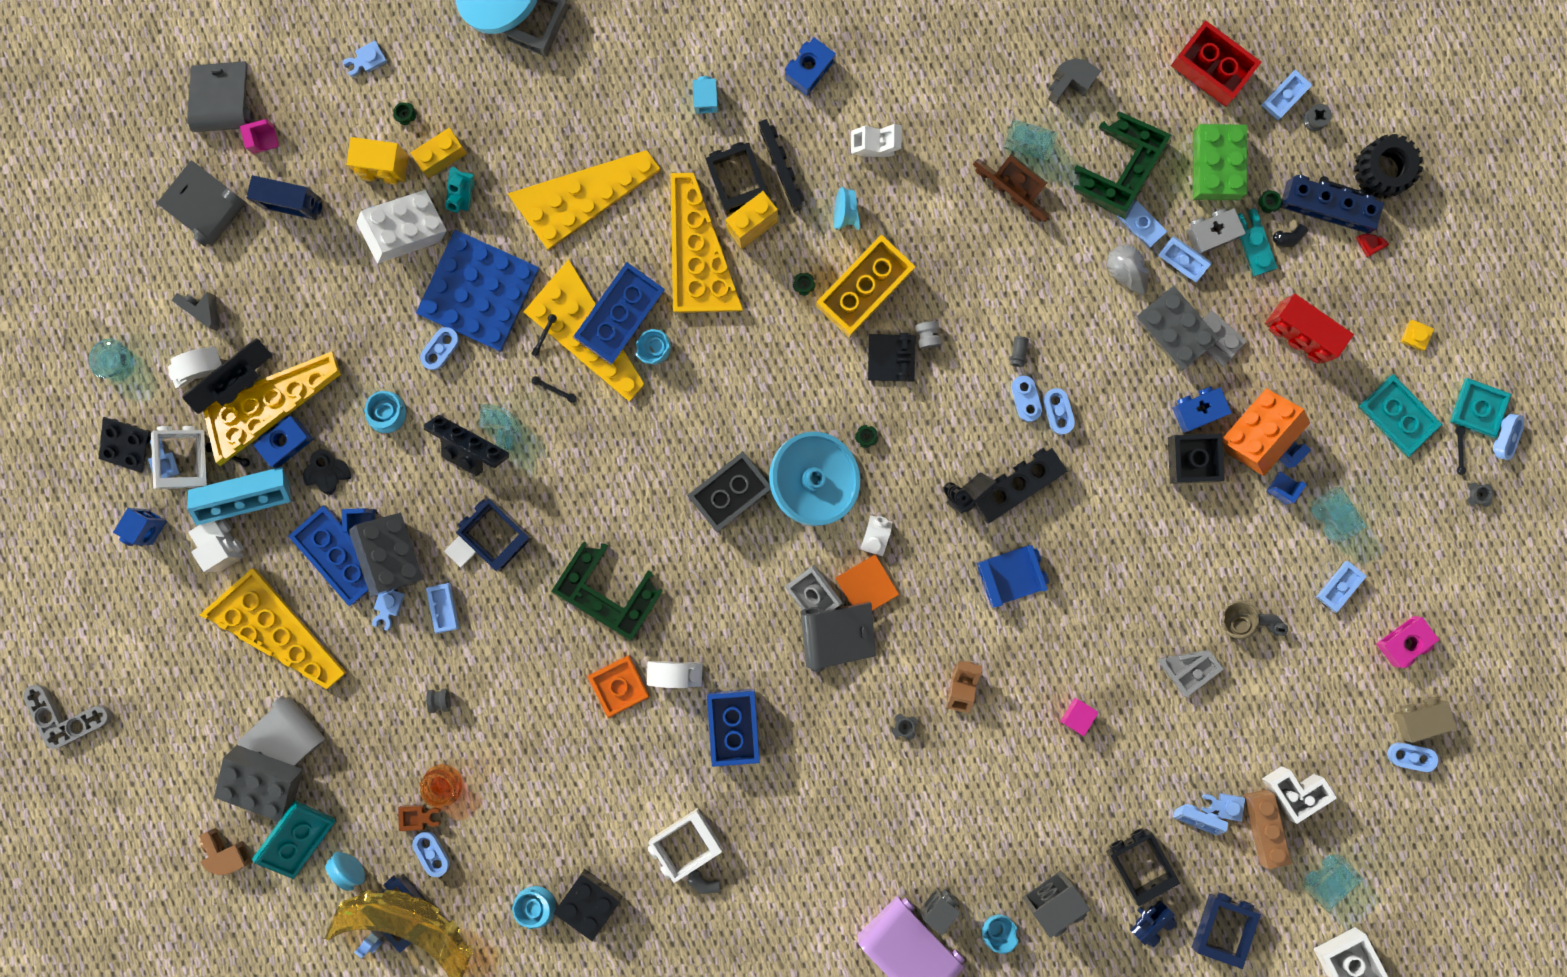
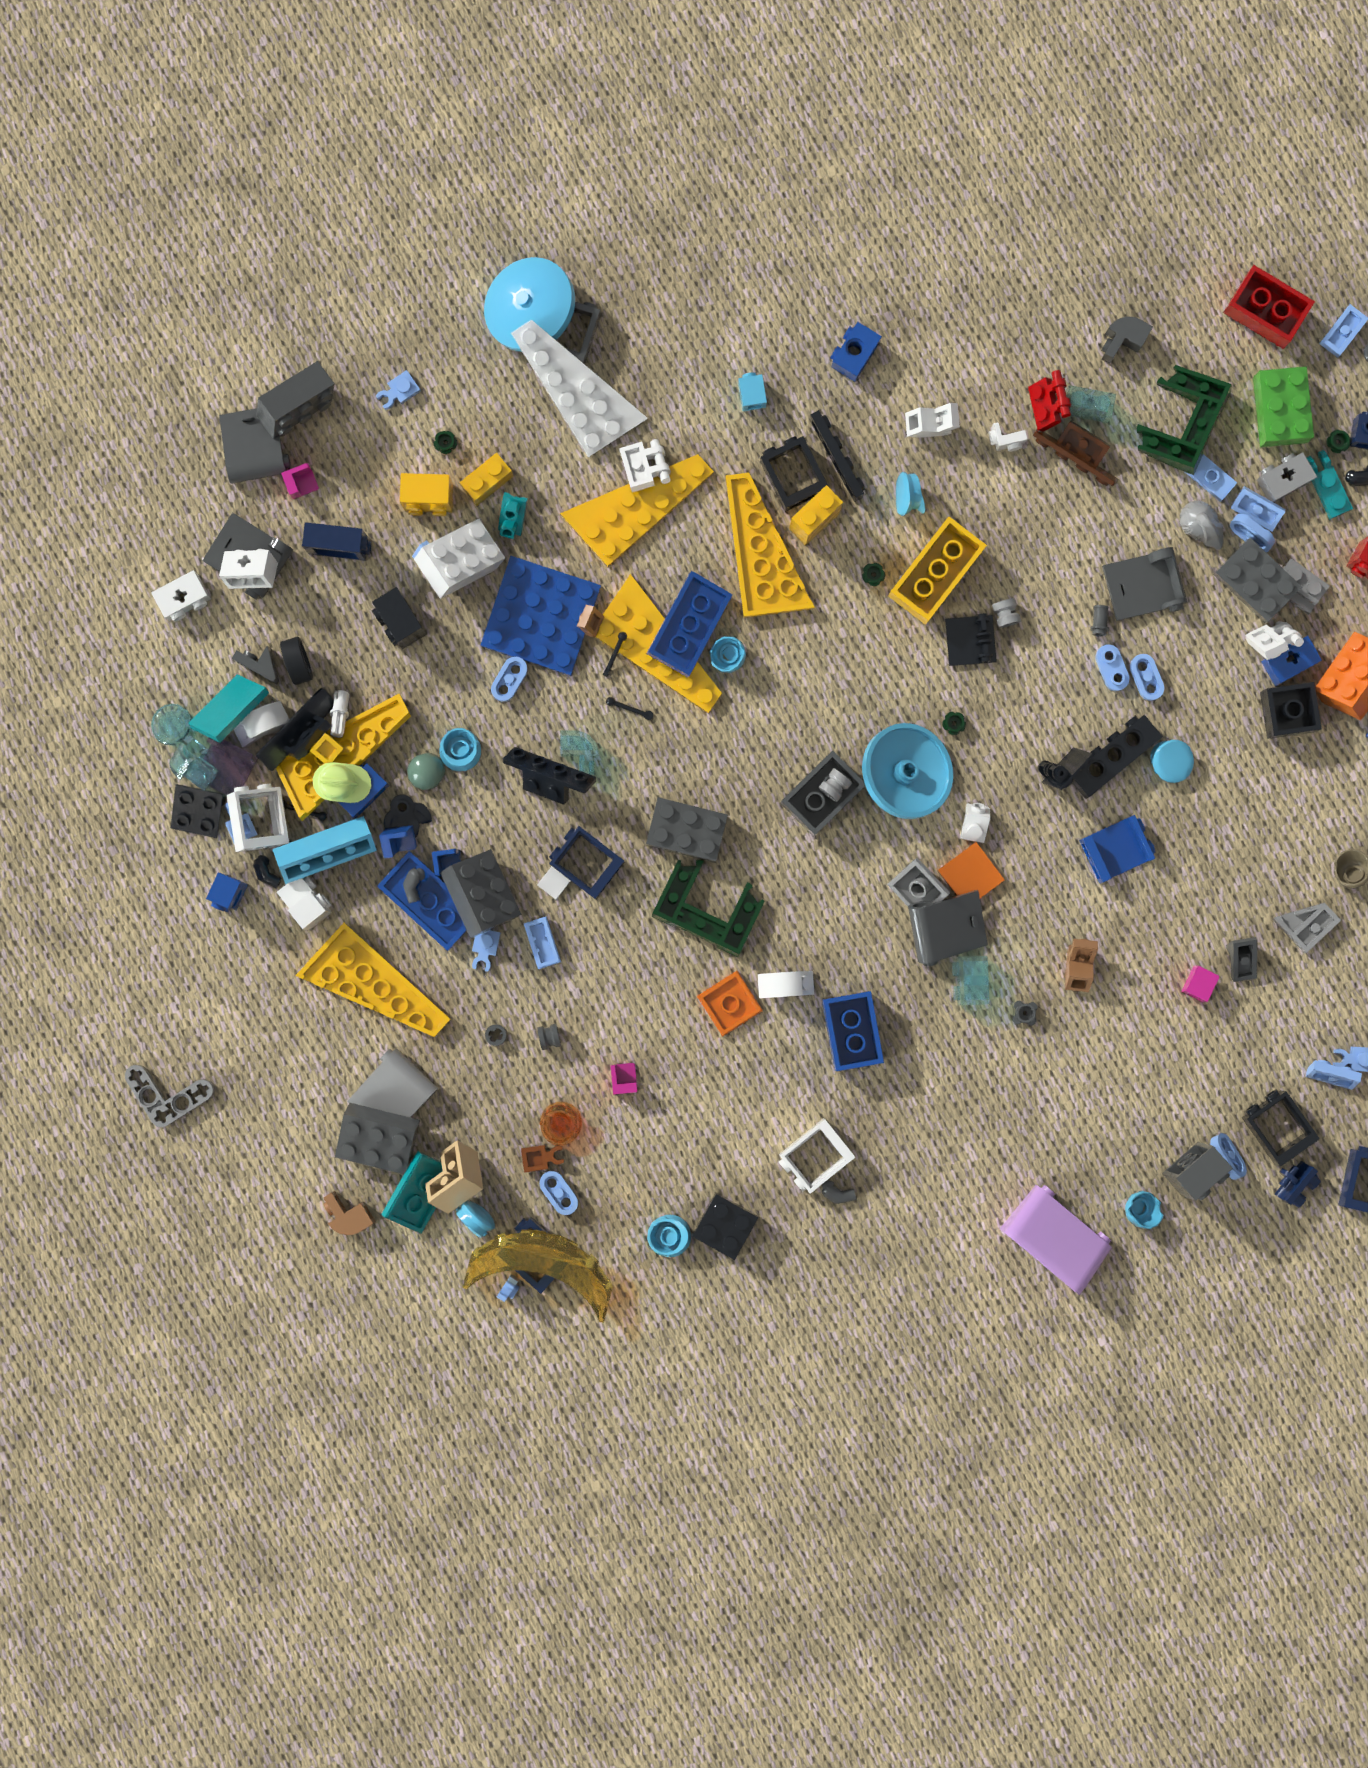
camera: 15 degrees left, 0 degrees up
(119, 235) = (169, 596): none -> white brick
(120, 398) = (189, 763): none -> clear light blue brick
(155, 403) = (233, 765): none -> clear purple bracket
(161, 348) = (228, 708): none -> teal tile
(180, 510) = (262, 872): none -> black arm
(196, 215) = (248, 569): none -> white brick
(233, 309) = (296, 660): none -> black tyre
(251, 398) = (326, 749): none -> yellow plate
(260, 56) = (295, 400): none -> dark grey brick
(262, 432) = (341, 782): none -> yellowish green piece
(271, 365) = (339, 713): none -> white axle
(312, 493) = (397, 840): none -> blue panel
(319, 537) = (411, 882): none -> dark grey arm
(331, 832) = (459, 1179): none -> tan brick
(336, 278) = (398, 617): none -> black brick
(349, 429) = (425, 771): none -> sand green hair
(379, 693) = (493, 1028): none -> dark grey bush
(506, 749) = (623, 1078): none -> dark pink panel
(523, 300) = (590, 621): none -> medium nougat plate
(541, 86) = (583, 399): none -> white wing
(586, 156) = (637, 467): none -> white plate
(594, 513) = (686, 830): none -> dark grey brick
(740, 485) = (834, 786): none -> light grey wheel
(855, 689) = (971, 980): none -> clear light blue brick
(940, 910) = (1082, 1191): dark grey brick -> none
(951, 169) = (1011, 441): none -> white bracket
(987, 133) = (1044, 401): none -> red plate
(1069, 321) = (1148, 584): none -> dark grey door
(1075, 495) = (1172, 760): none -> medium azure piece
(1088, 888) = (1228, 1151): none -> light blue plate
(1123, 697) = (1243, 959): none -> dark grey slope
(1170, 276) = (1246, 527): none -> light blue plate
(1187, 389) = (1274, 640): none -> white plate

